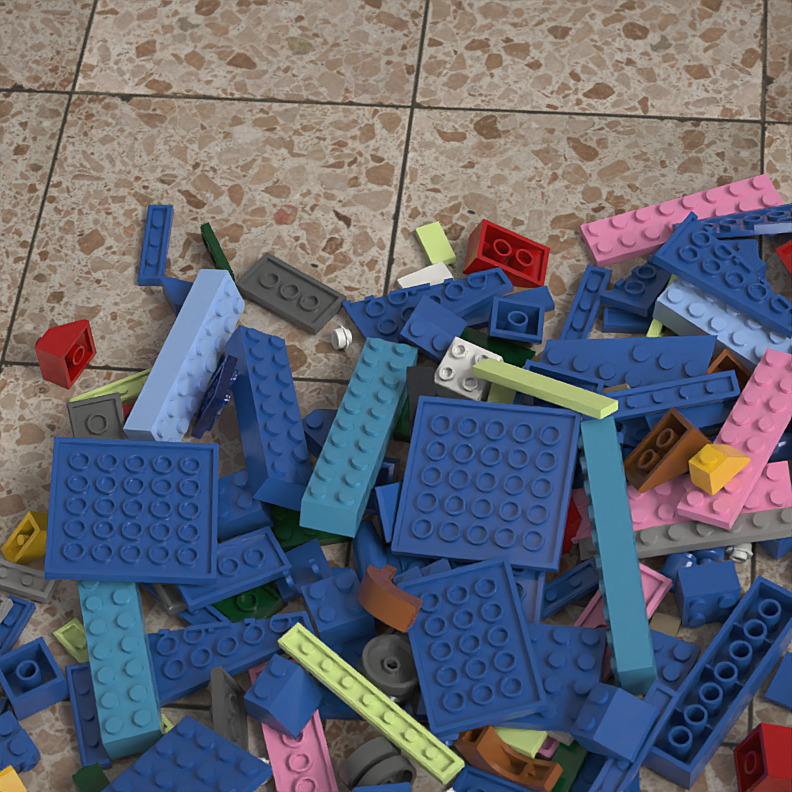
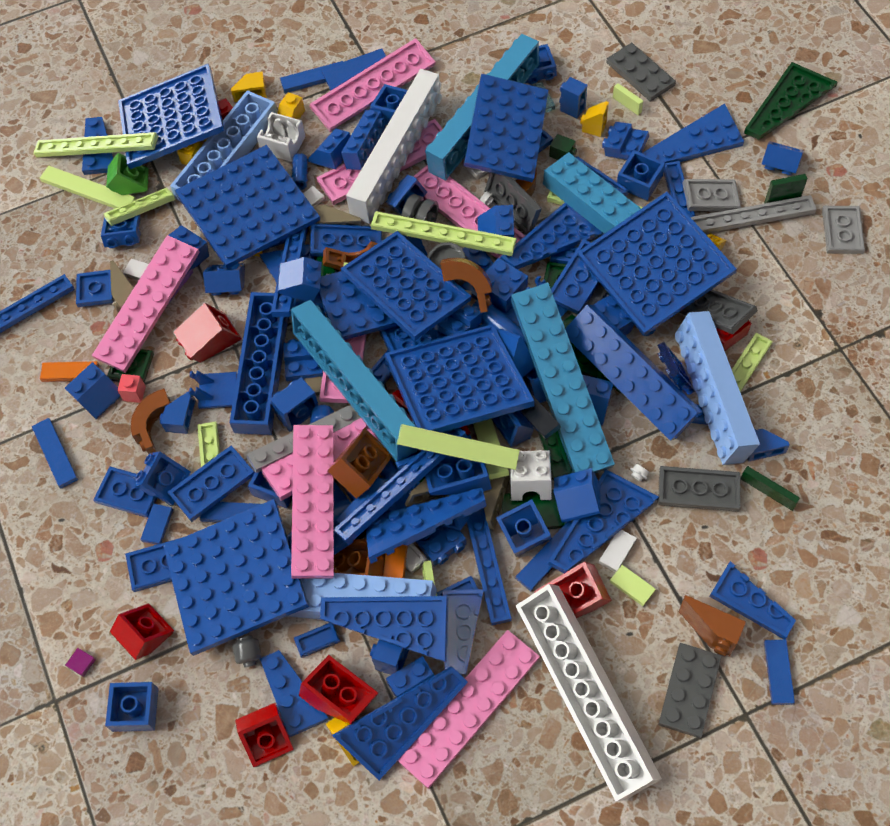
camera: 150 degrees right, 10 degrees up
(65, 352) = (798, 355): red slope -> none
(155, 245) = (823, 482): blue tile -> none
(330, 179) = (745, 598): none -> blue wing
(353, 119) = (779, 672): none -> blue tile
(383, 159) = (714, 626): none -> dark orange slope
(450, 142) = (690, 690): none -> dark grey plate
(555, 170) = (588, 693): none -> white brick
(716, 466) = (315, 451): yellow slope -> none

